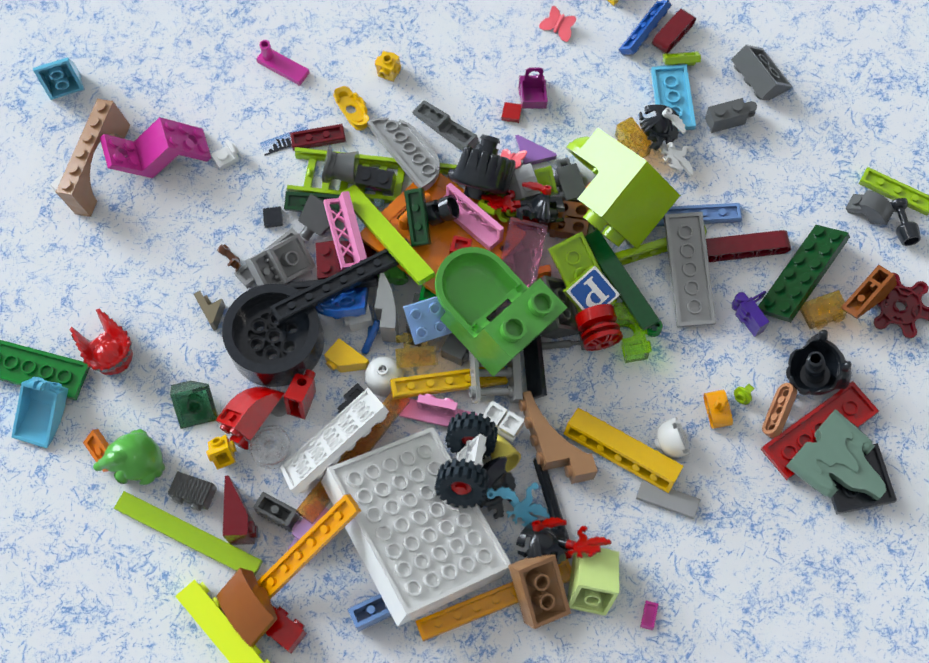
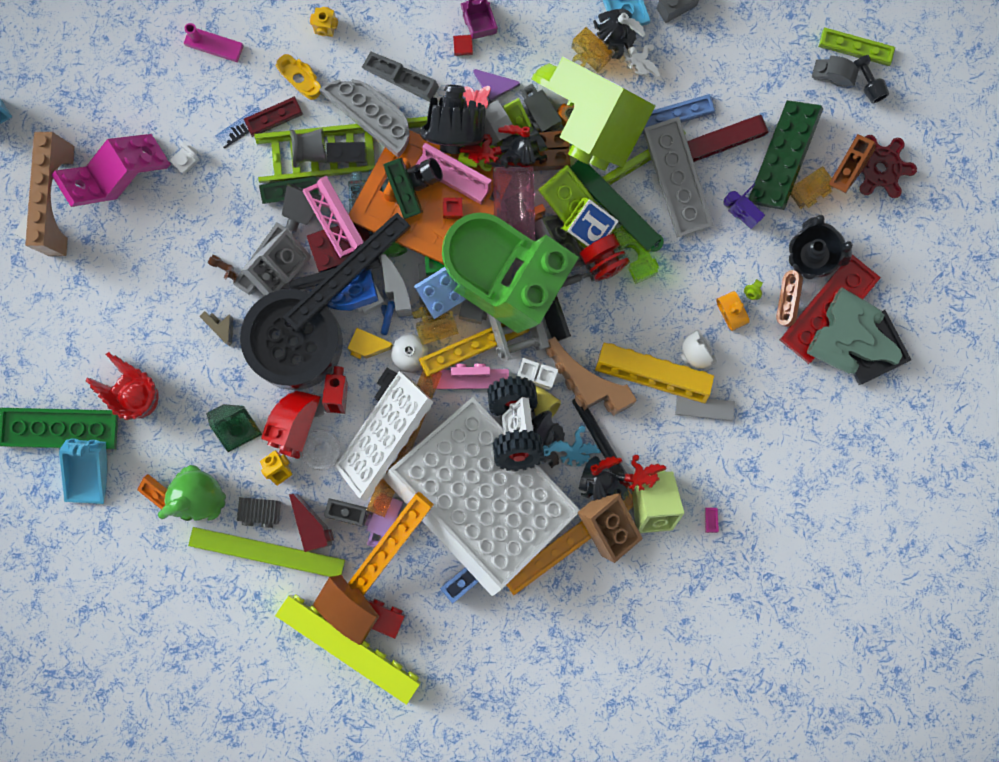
camera: 25 degrees left, 15 degrees up
(272, 217) = (252, 213): black tile -> none
(389, 237) = (379, 214): lime tile -> none

